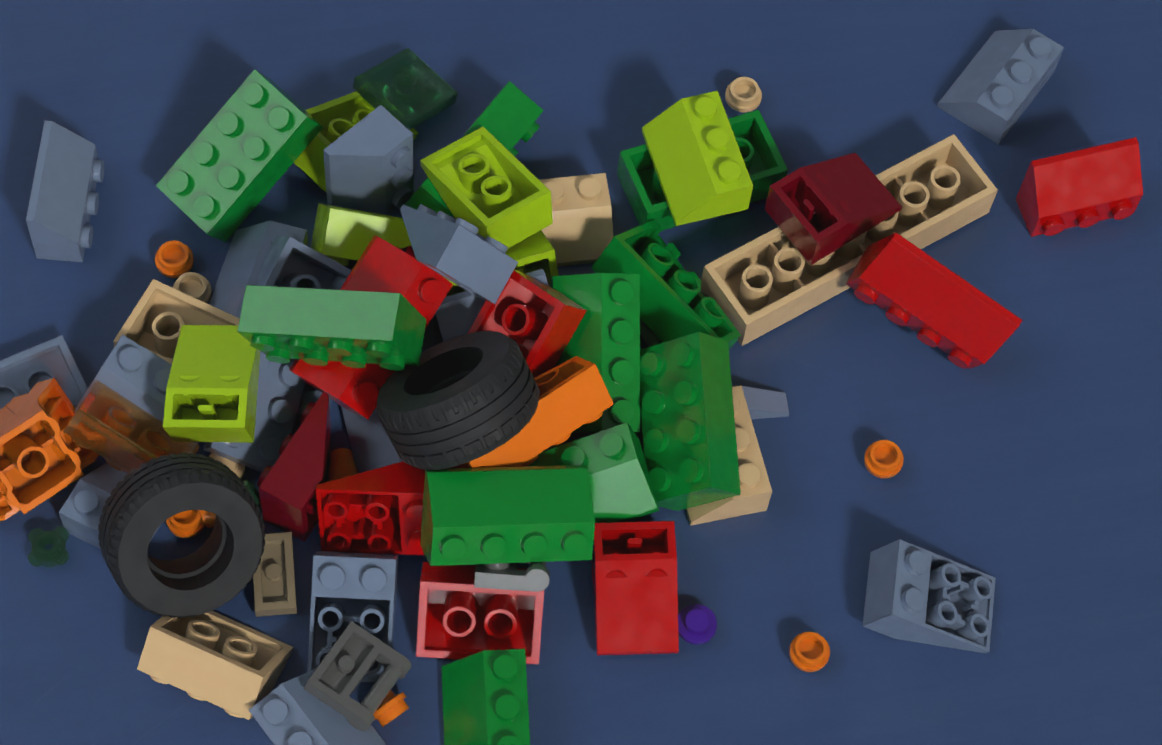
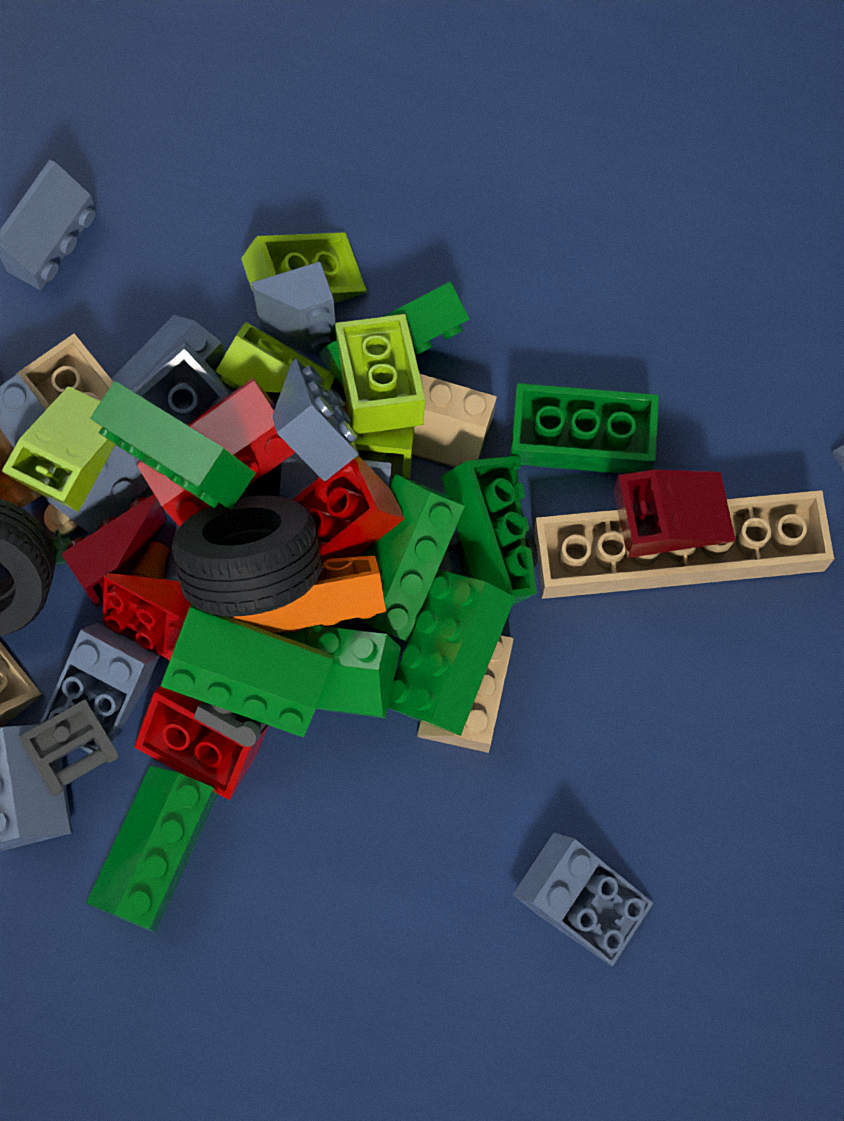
camera: 30 degrees right, 10 degrees up
(174, 259) = (111, 319): orange plate -> none
(194, 285) = (111, 353): tan plate -> none
(239, 156) = (197, 254): green brick -> none
(275, 577) = (54, 626): dark tan plate -> none
(391, 708) = (88, 783): orange plate -> none
(405, 88) = (371, 249): clear green plate -> none
(635, 588) = (336, 774): red slope -> none
(696, 624) = (374, 827): dark purple plate -> none
(698, 160) = (575, 421): lime slope -> none
(743, 94) = (661, 372): tan plate -> none
(765, 403) = (533, 658): sand blue piece -> none
(809, 651) = (457, 894): orange plate -> none
(883, 459) = (610, 754): orange plate -> none
(932, 301) = (716, 637): red slope -> none

